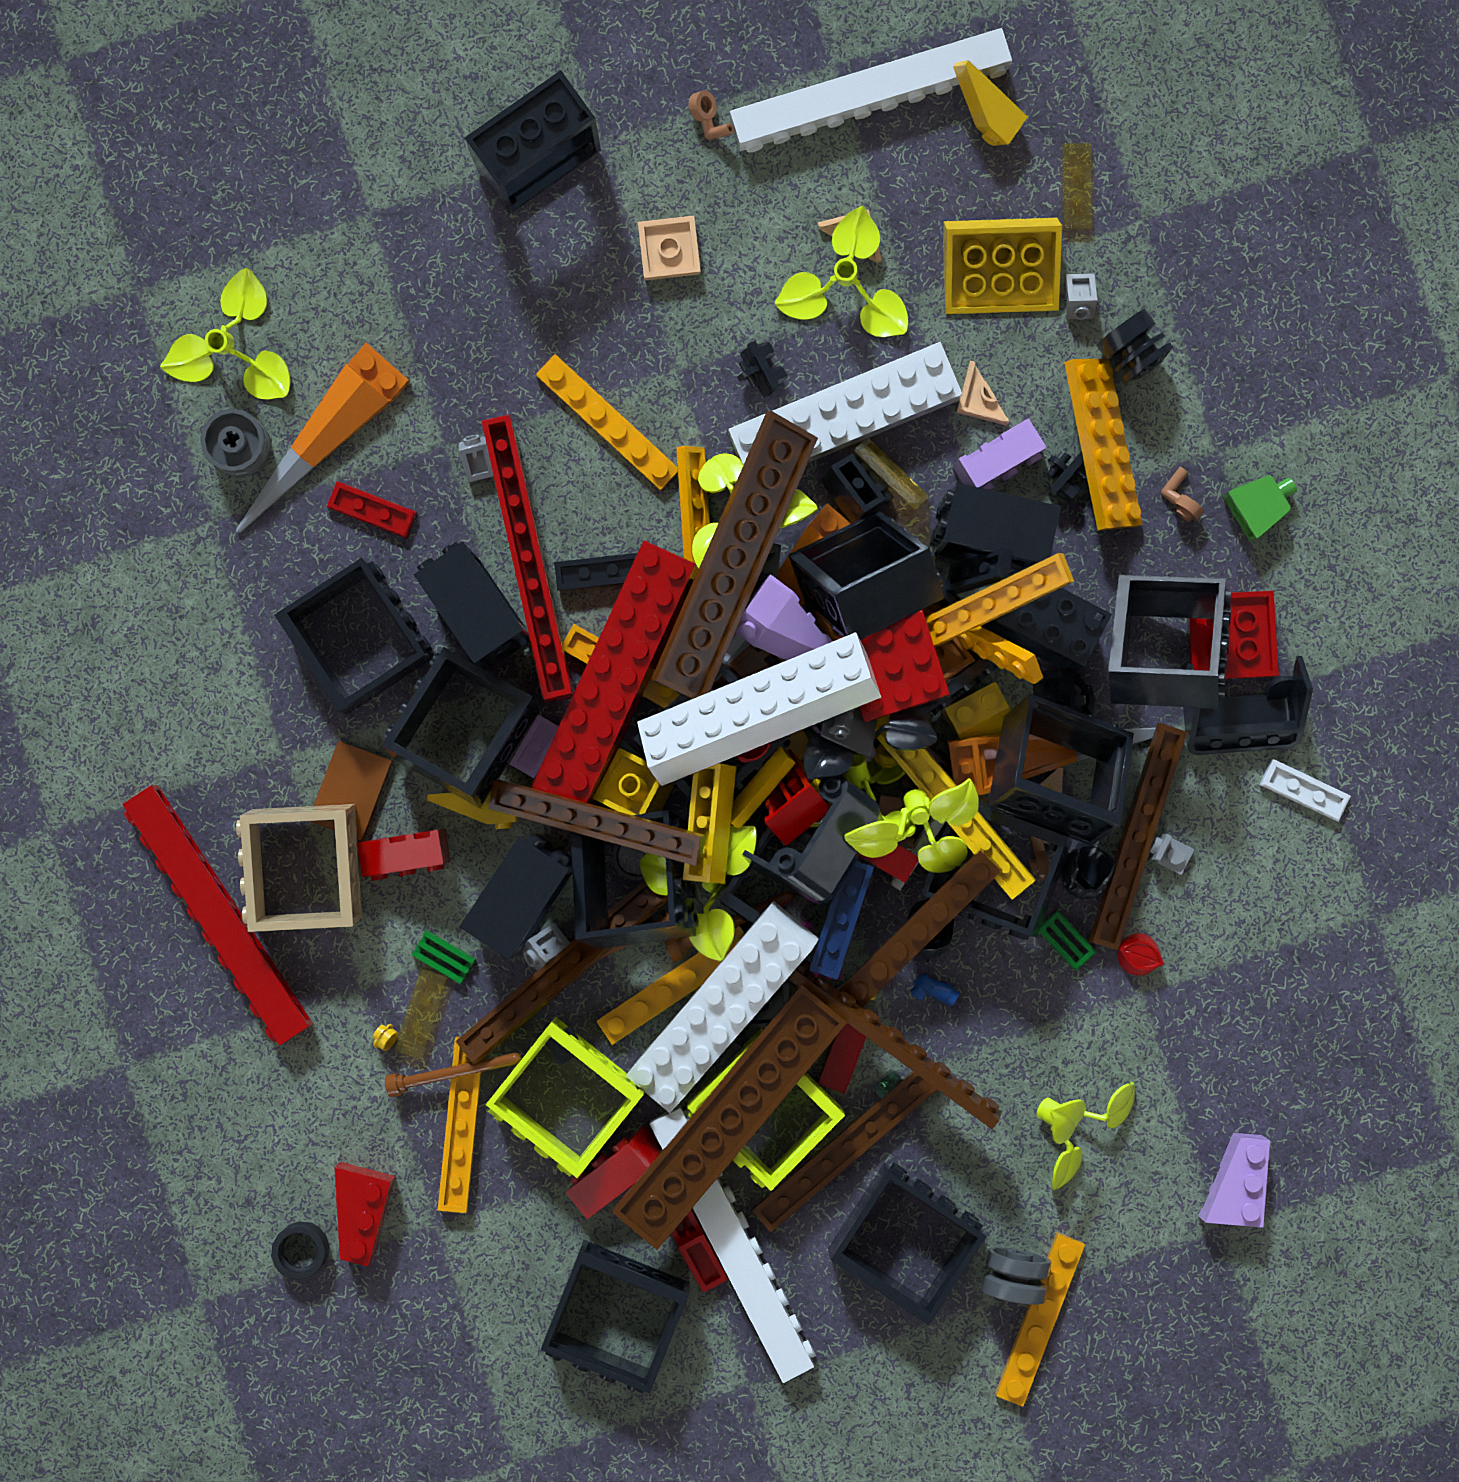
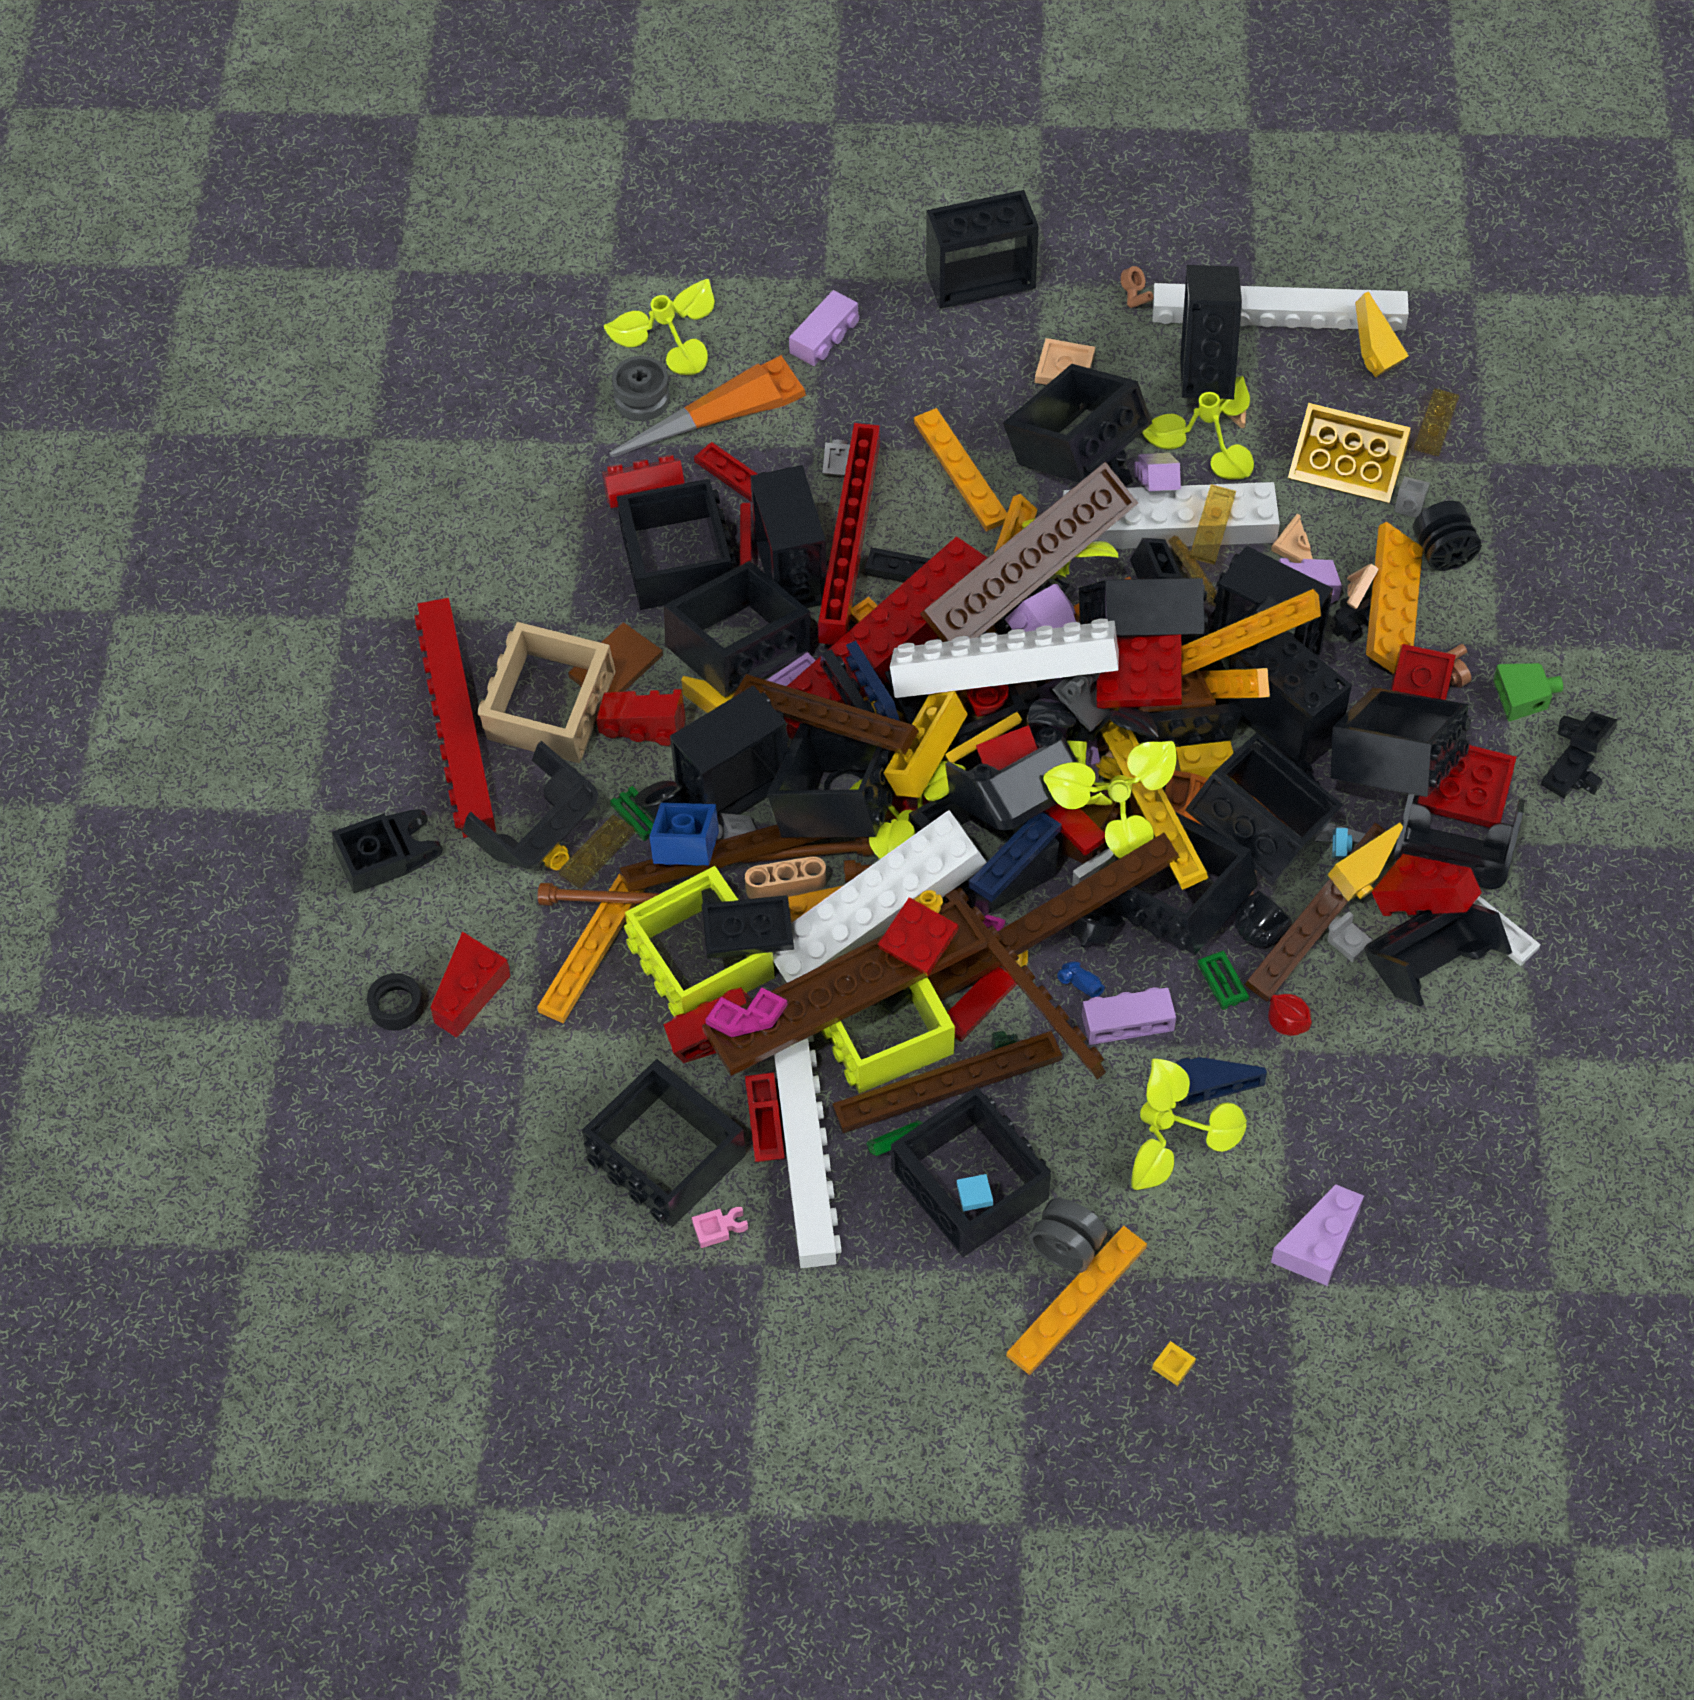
camera: 25 degrees right, 30 degrees down
(222, 1089) = (383, 849): none -> black brick
(287, 568) = (641, 477): none -> red wedge
(369, 1016) = (571, 801): none -> black windscreen
(398, 290) = (824, 328): none -> lavender brick
(423, 601) = (745, 533): none -> red tile
(460, 948) = (659, 793): none -> black piece
(506, 992) = (684, 834): none -> blue brick
(604, 773) = (846, 688): none -> black plate
(606, 994) = (796, 870): none -> light nougat beam
(610, 1082) = (747, 926): none -> black tile
(637, 780) = (867, 677): none -> dark blue plate
(643, 1199) = (759, 1015): none -> dark pink tile
(691, 1370) = (714, 1227): none -> bright pink plate
(752, 355) = (1115, 422): none -> black window
(782, 1049) = (918, 936): none -> red plate
(784, 1010) = (930, 900): none -> yellow plate
(818, 373) = (1158, 471): none -> lavender brick
(825, 1222) = (883, 1143): none -> green tile
(827, 180) = (1210, 331): none -> black window
(897, 424) = (1212, 524): none -> clear yellow tile
(926, 1286) = (974, 1192): none -> medium azure tile
(992, 1015) = (1128, 1015): none -> lavender brick
(1065, 443) = (1359, 584): none -> light nougat tile
(1086, 1058) = (1218, 1078): none -> dark blue slope
(1137, 758) = (1341, 843): none -> medium azure plate
(1146, 1353) = (1174, 1363): none -> yellow plate
(1157, 530) = (1422, 672): none -> red plate
(1170, 779) = (1361, 869): none -> yellow slope
(1232, 784) = (1426, 885): none -> red wedge
(1244, 834) = (1430, 942): none -> black windscreen
(1328, 584) = (1571, 772): none -> black hinge
(1335, 535) = (1587, 734): none -> black hinge

